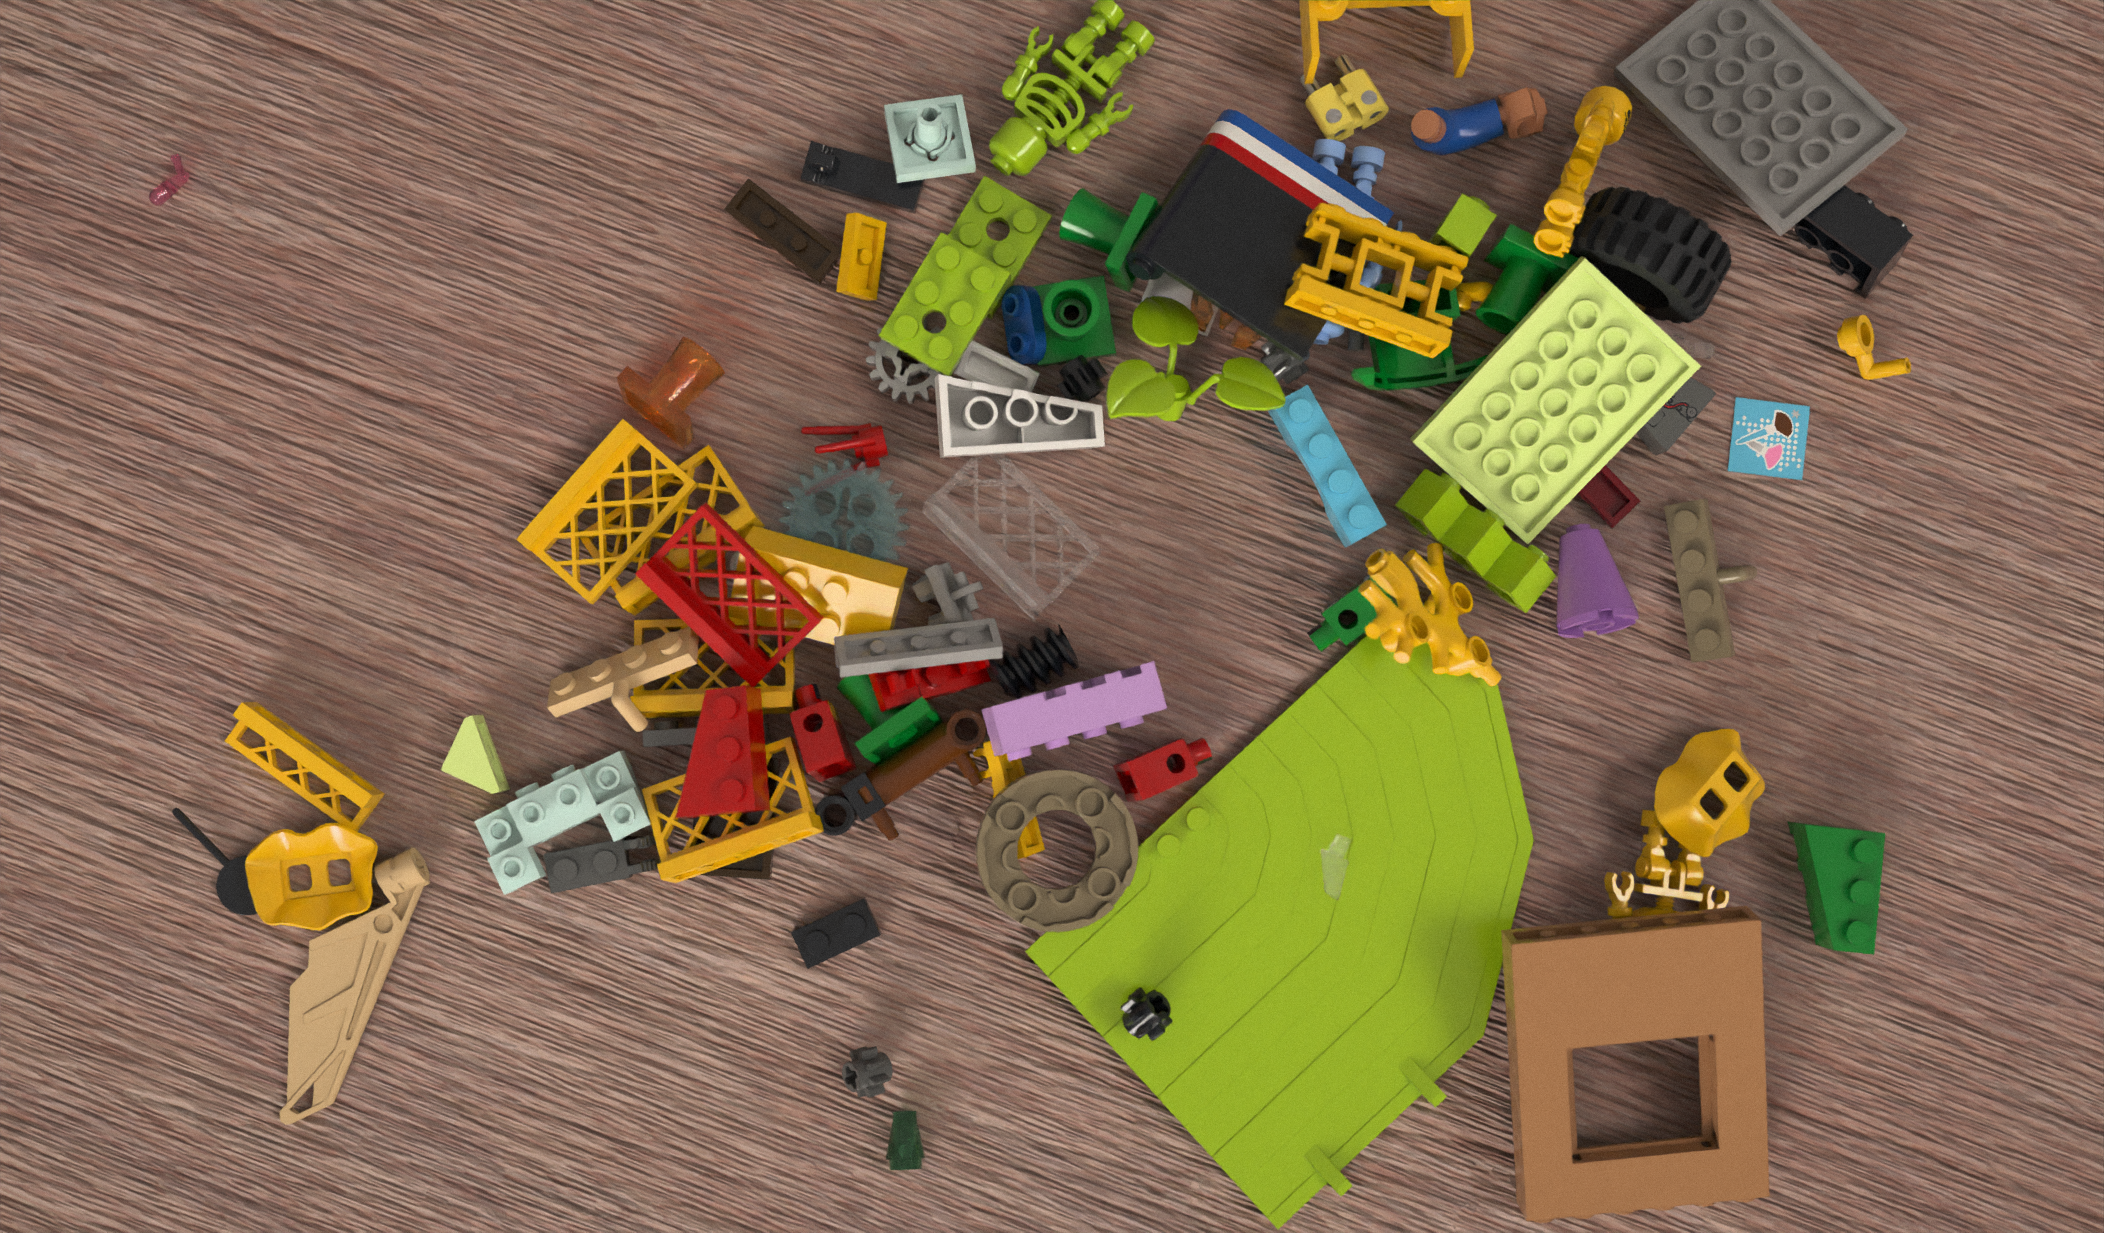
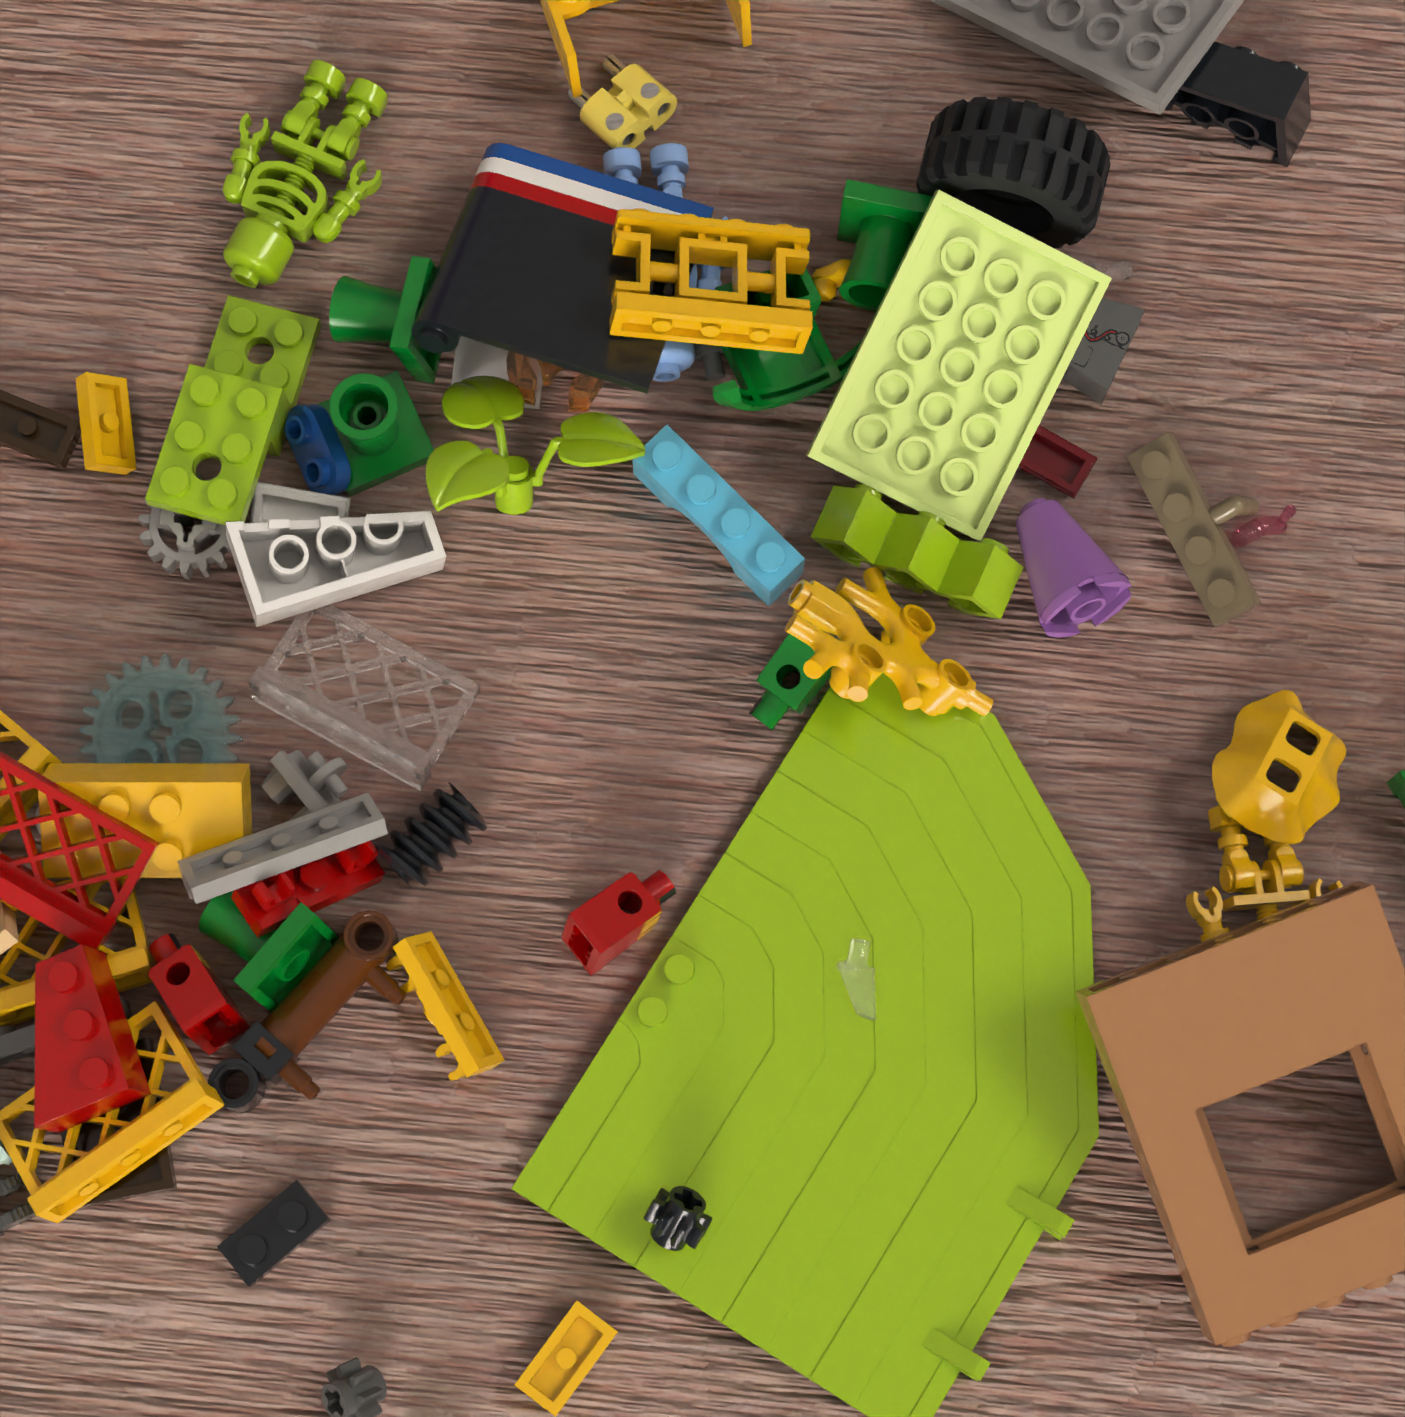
camera: 15 degrees left, 10 degrees down
(859, 177) = (86, 335): black hinge -> none
(866, 441) = (164, 632): red plant -> none
(927, 125) = (150, 260): light aqua plate -> none
(1032, 1089) = (566, 1358): none -> yellow plate
(1074, 710) = (491, 875): lavender wedge -> none
(1082, 379) = (401, 490): black gear -> none
(1097, 890) = (586, 1032): dark tan plate -> none
(1283, 364) = (635, 408): dark grey gear -> none
(1463, 128) = (771, 98): piece -> none
(1464, 225) = (797, 198): lime brick -> none
(1599, 123) = (920, 51): yellow piece -> none
(1754, 591) = (1263, 526): none -> clear pink piece
(1768, 438) = (1226, 350): medium azure sticker -> none
(1857, 339) = (1290, 210): yellow plate -> none

